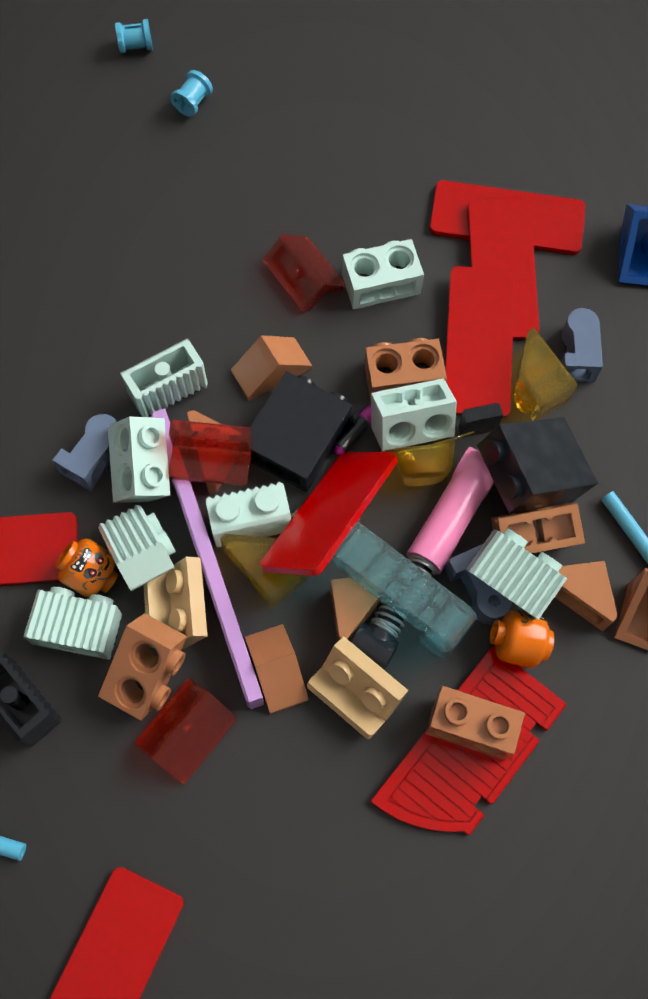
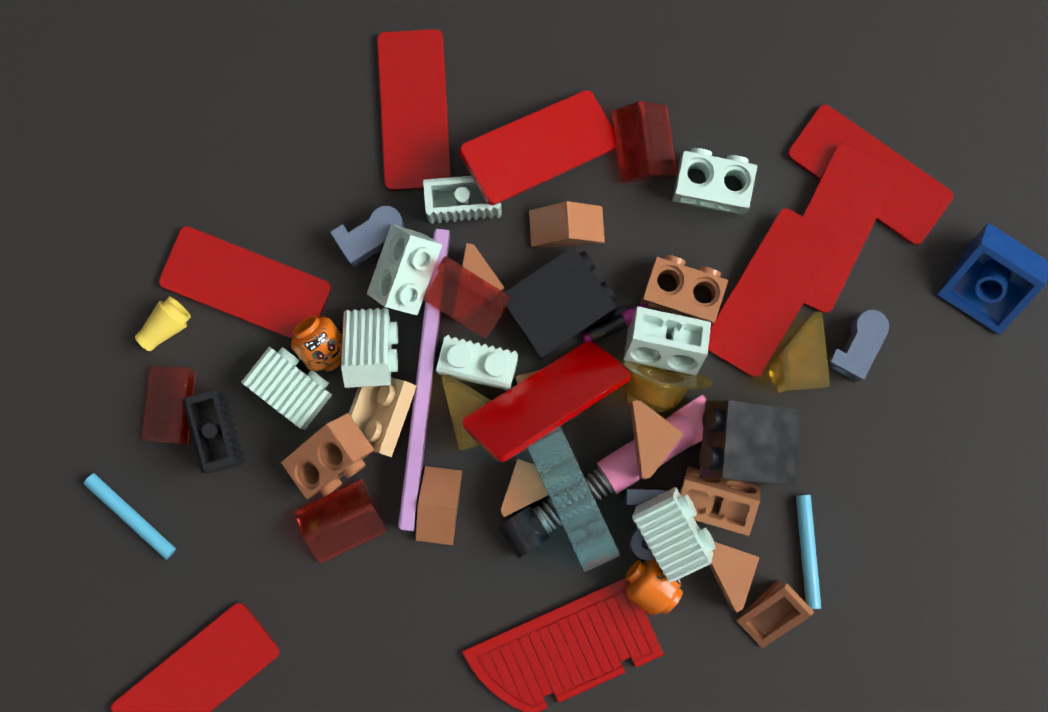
camera: 25 degrees right, 15 degrees up
(83, 333) = (413, 108): none -> red piece
(211, 307) = (538, 147): none -> red piece
(356, 688) = (493, 559): tan bracket -> none
(446, 494) = (652, 438): none -> nougat slope
(475, 723) = (575, 636): nougat brick -> none
(480, 419) = (727, 372): black tile -> none

